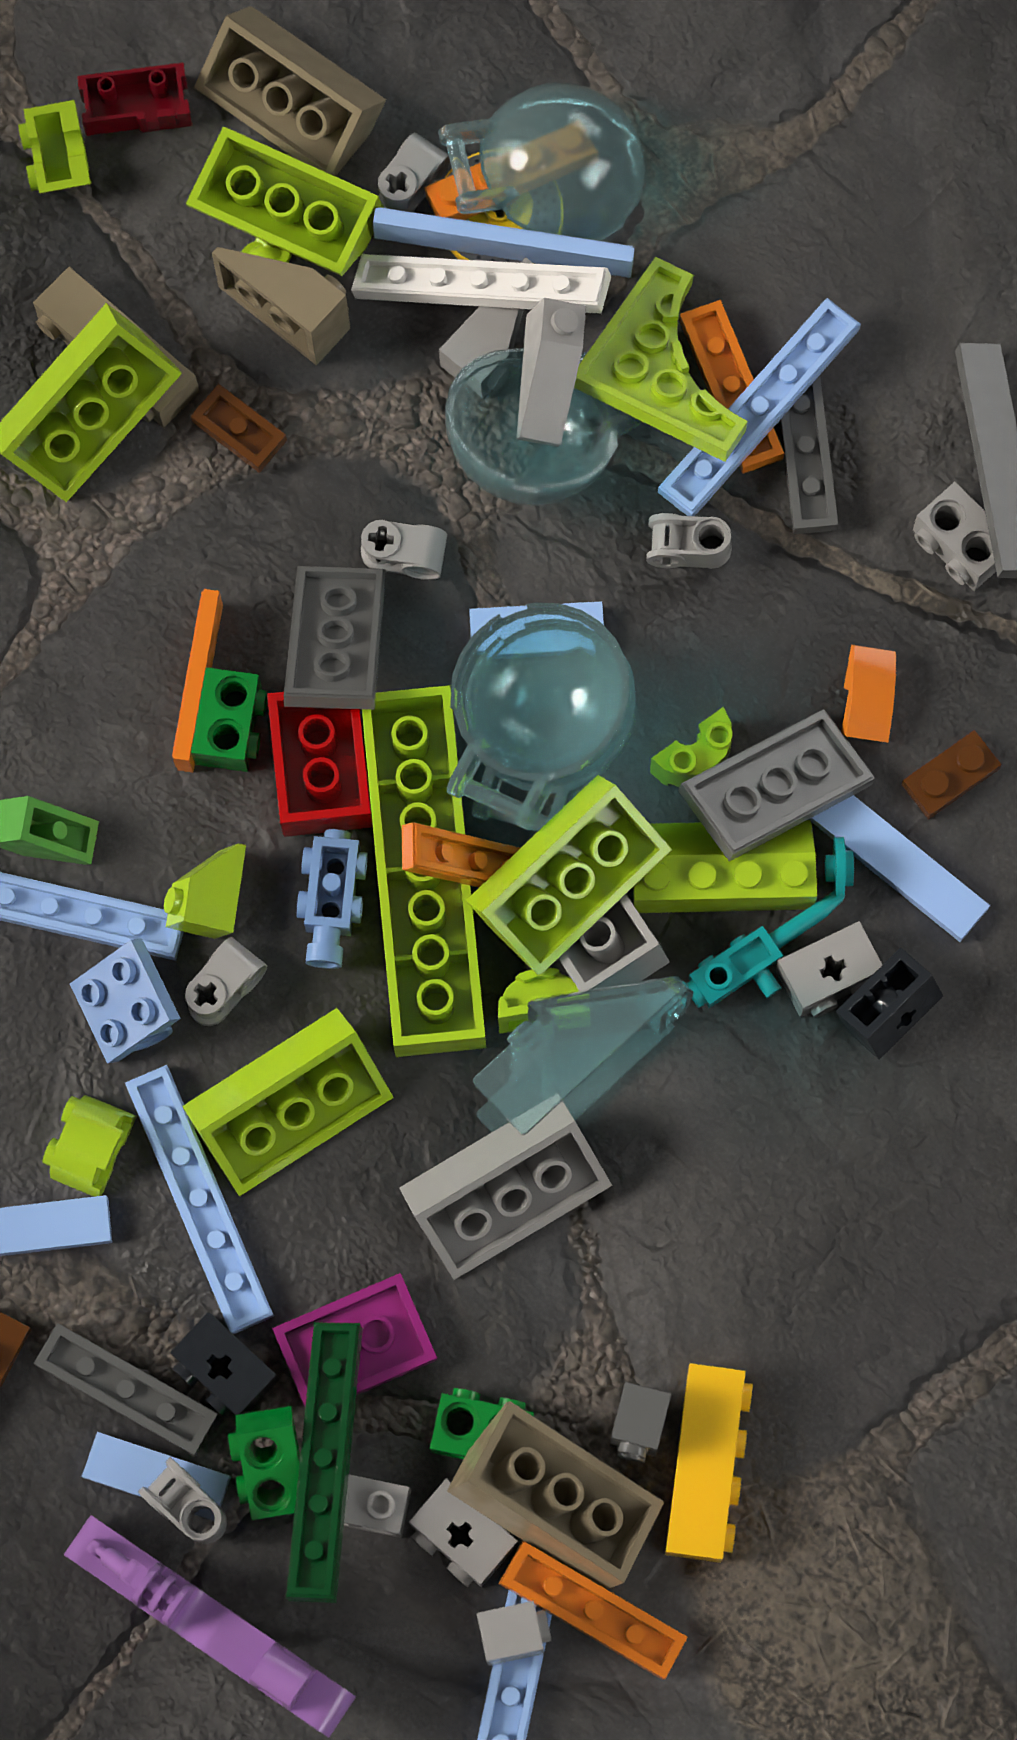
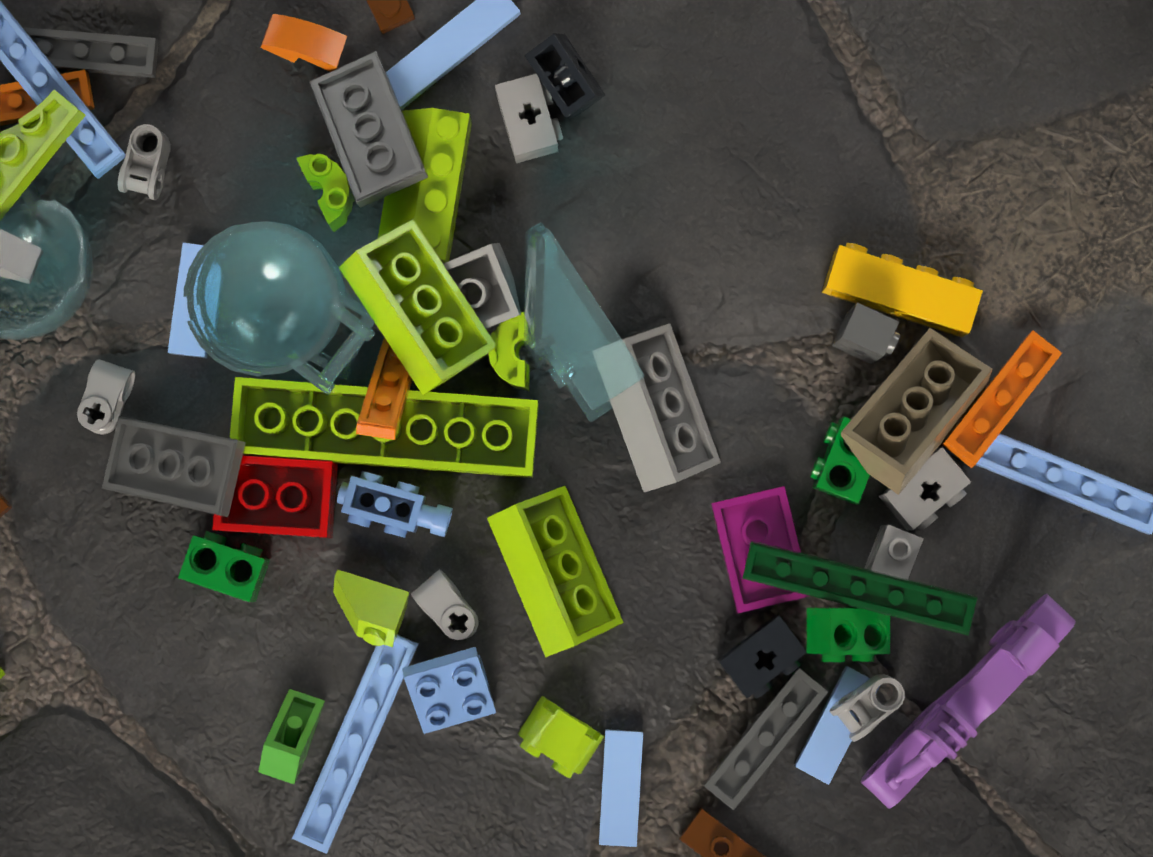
camera: 85 degrees left, 10 degrees up
(199, 1200) = (620, 655): light blue tile -> none
(200, 657) = (171, 583): orange tile -> none
(513, 1632) = (1018, 461): light grey brick -> none
(756, 953) = (501, 170): teal piece -> none

